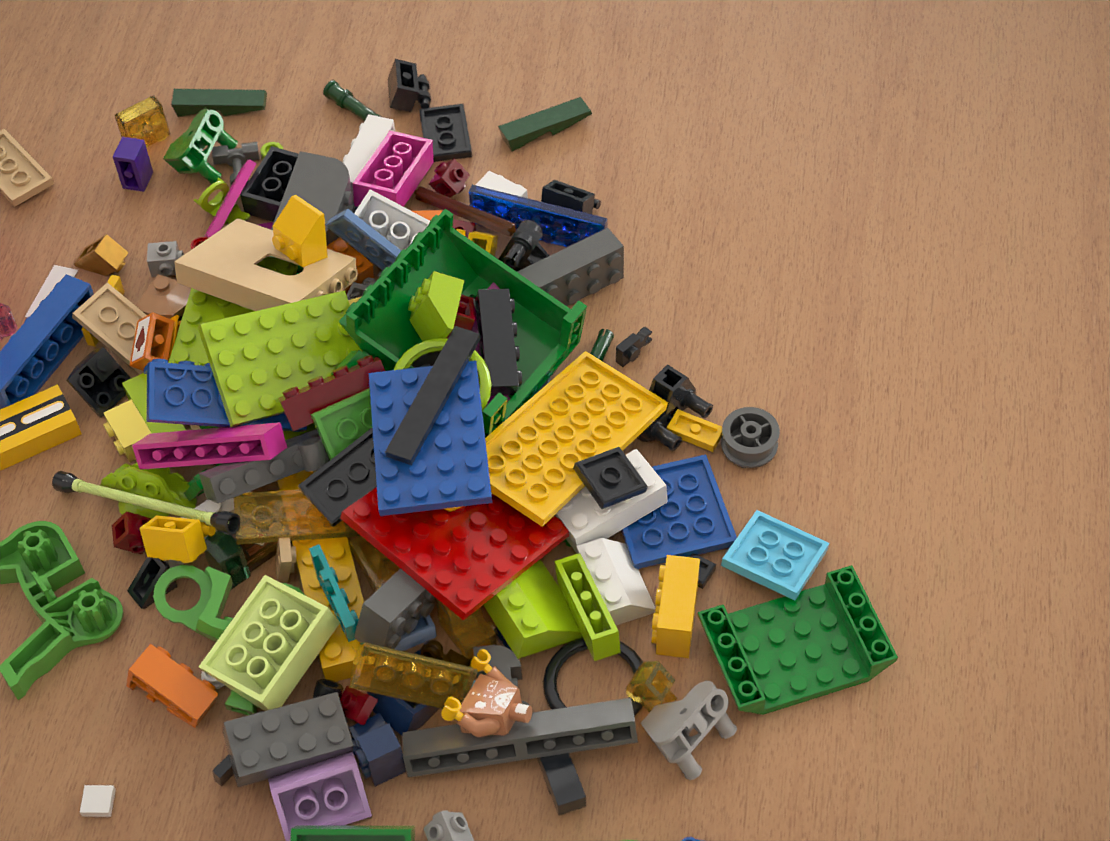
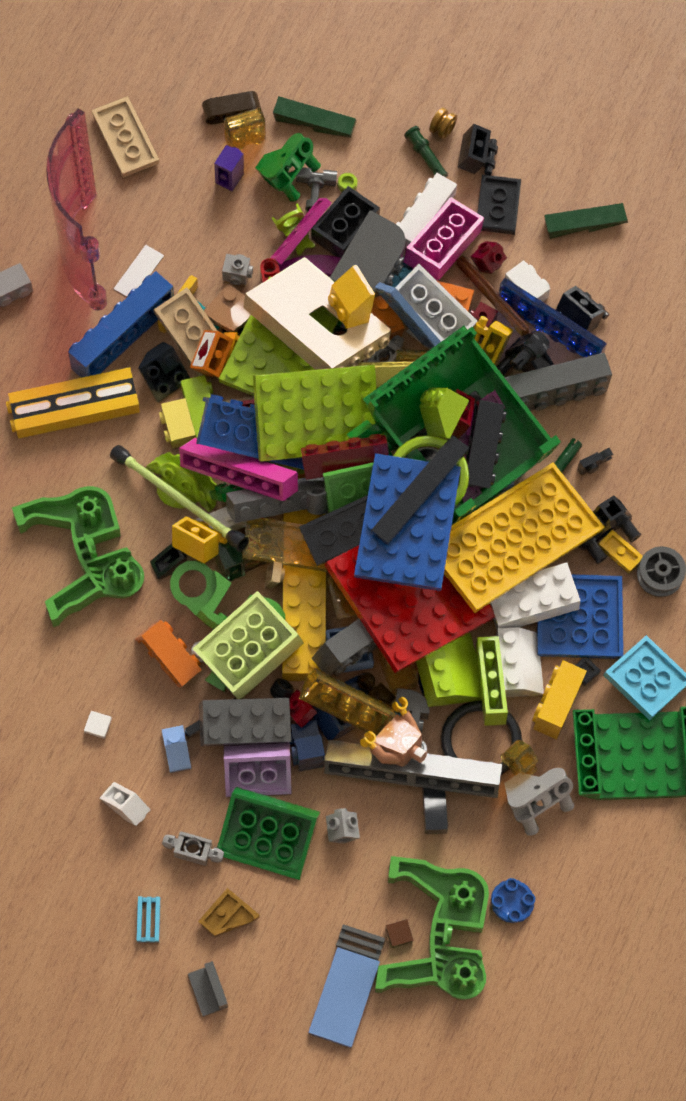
camera: 10 degrees right, 15 degrees up
(102, 257) = (185, 251): pearl gold slope -> none
(104, 116) = (221, 107): none -> dark brown beam
(127, 532) = (163, 516): dark red brick -> none
(208, 802) = (176, 748): none -> light blue slope
(336, 597) = (305, 620): teal wing -> none
(362, 71) = (443, 123): none -> pearl gold wheel
(610, 477) = (538, 585): black tile -> none

